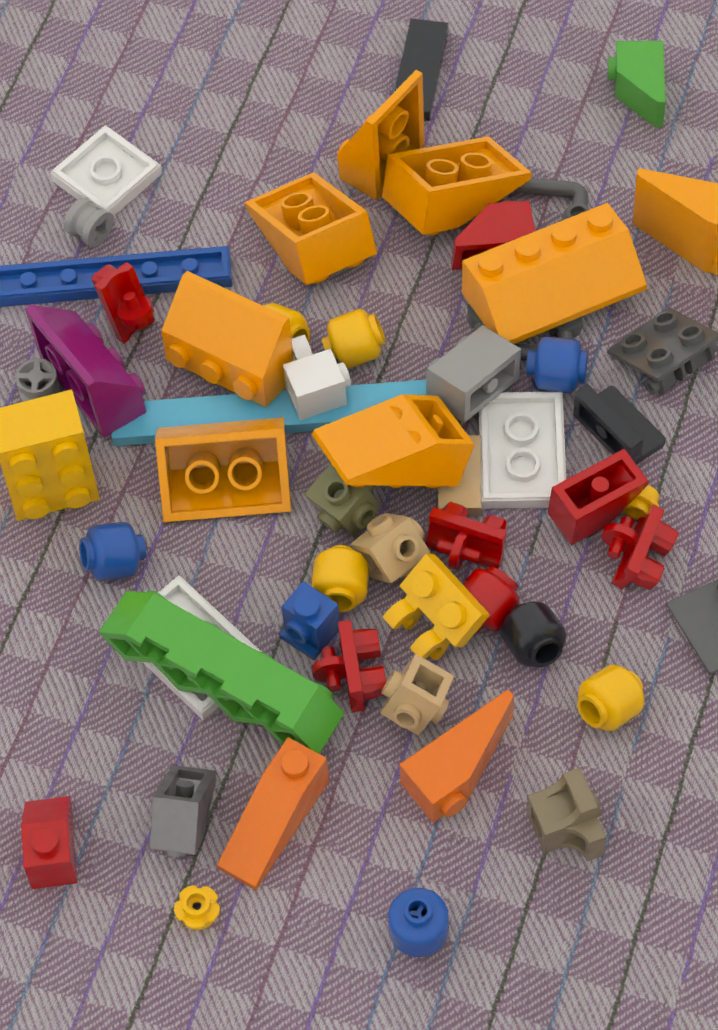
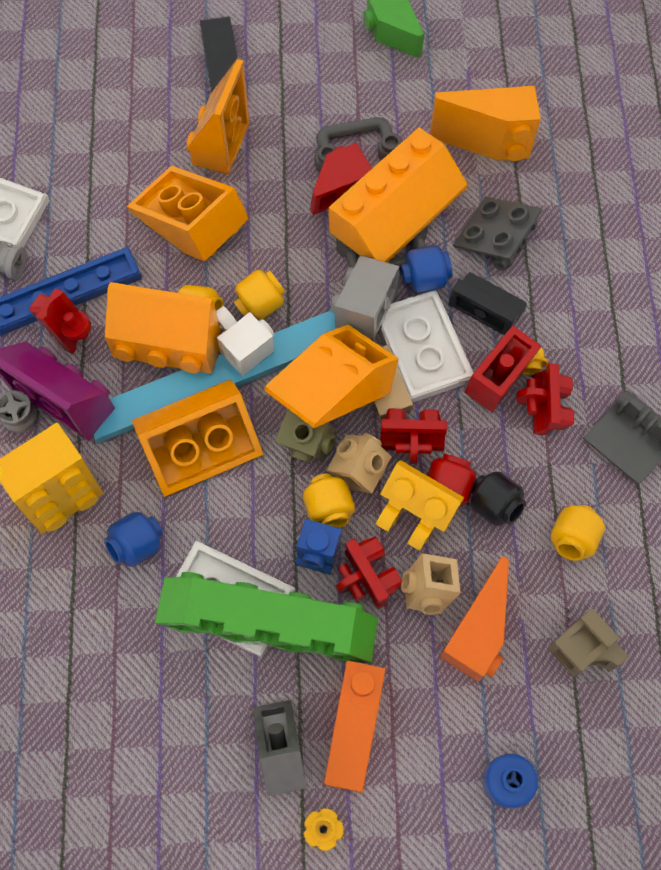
camera: 25 degrees left, 10 degrees up
(49, 842) = (177, 814): red slope -> none
(450, 182) = (285, 144): light orange slope -> none

